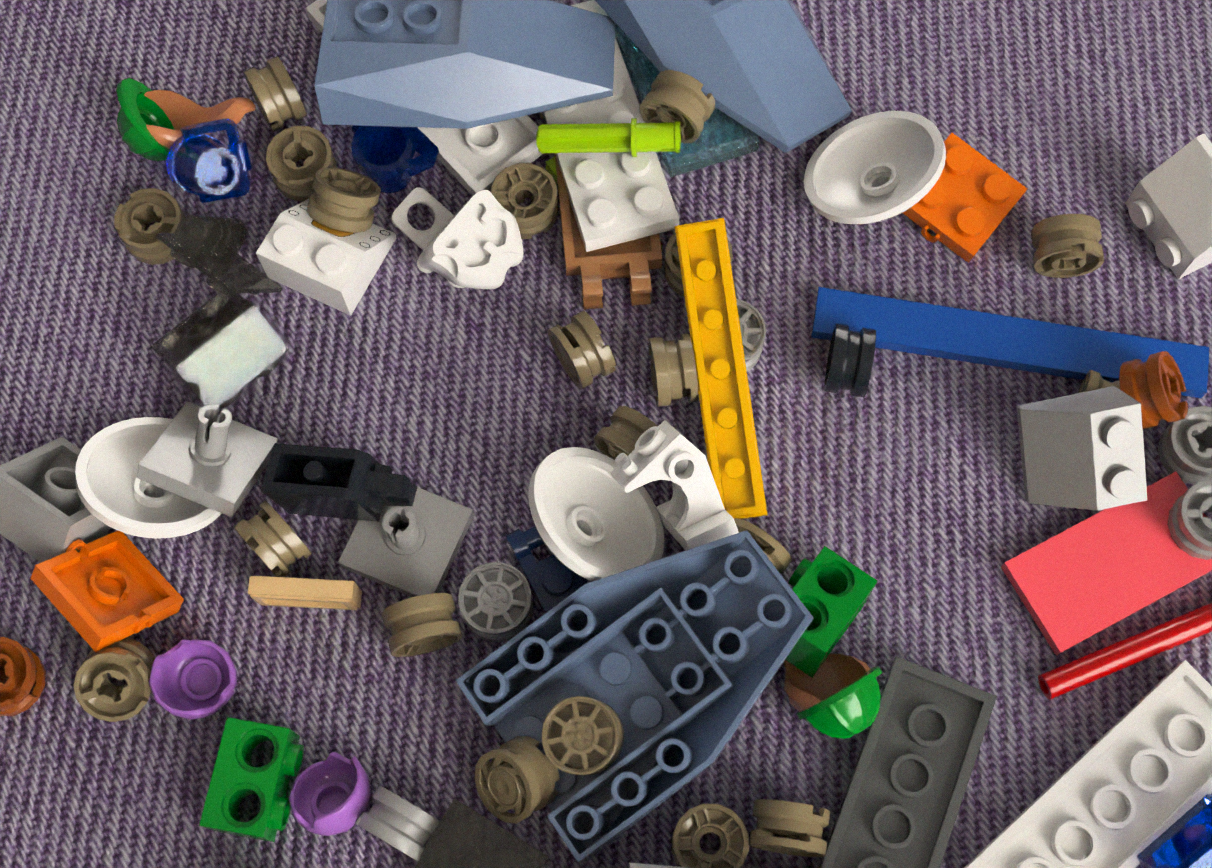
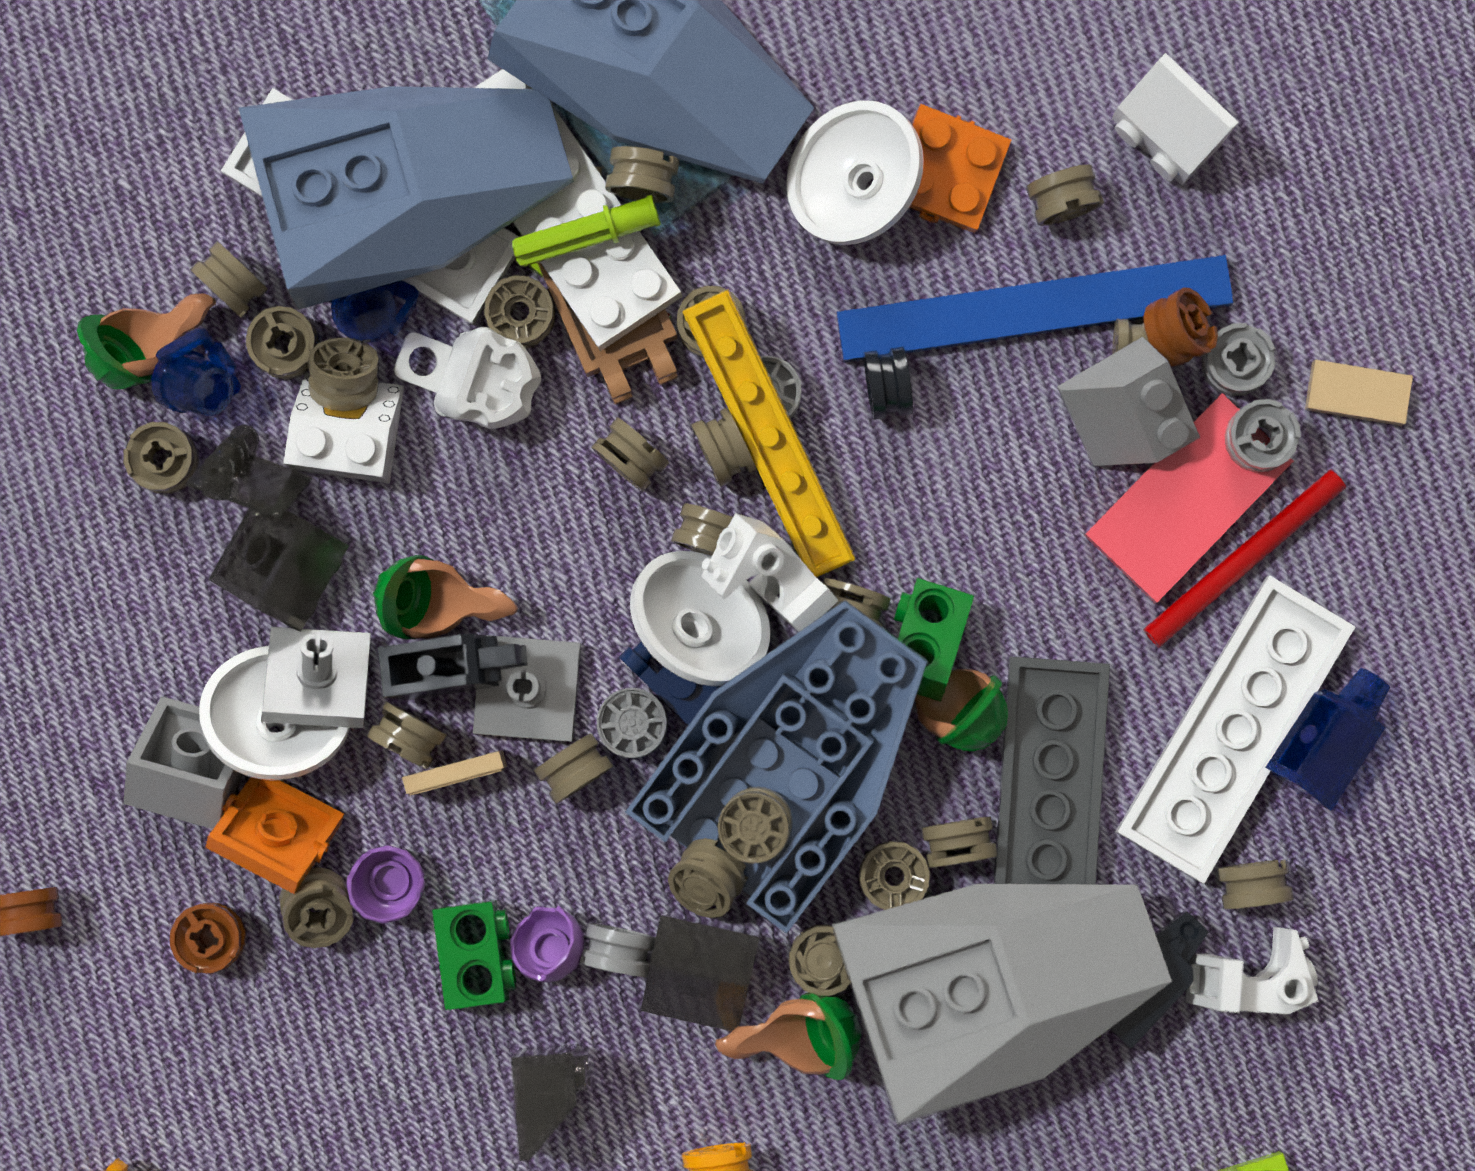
camera: 15 degrees left, 15 degrees up
(342, 413) = (430, 599): none -> piece

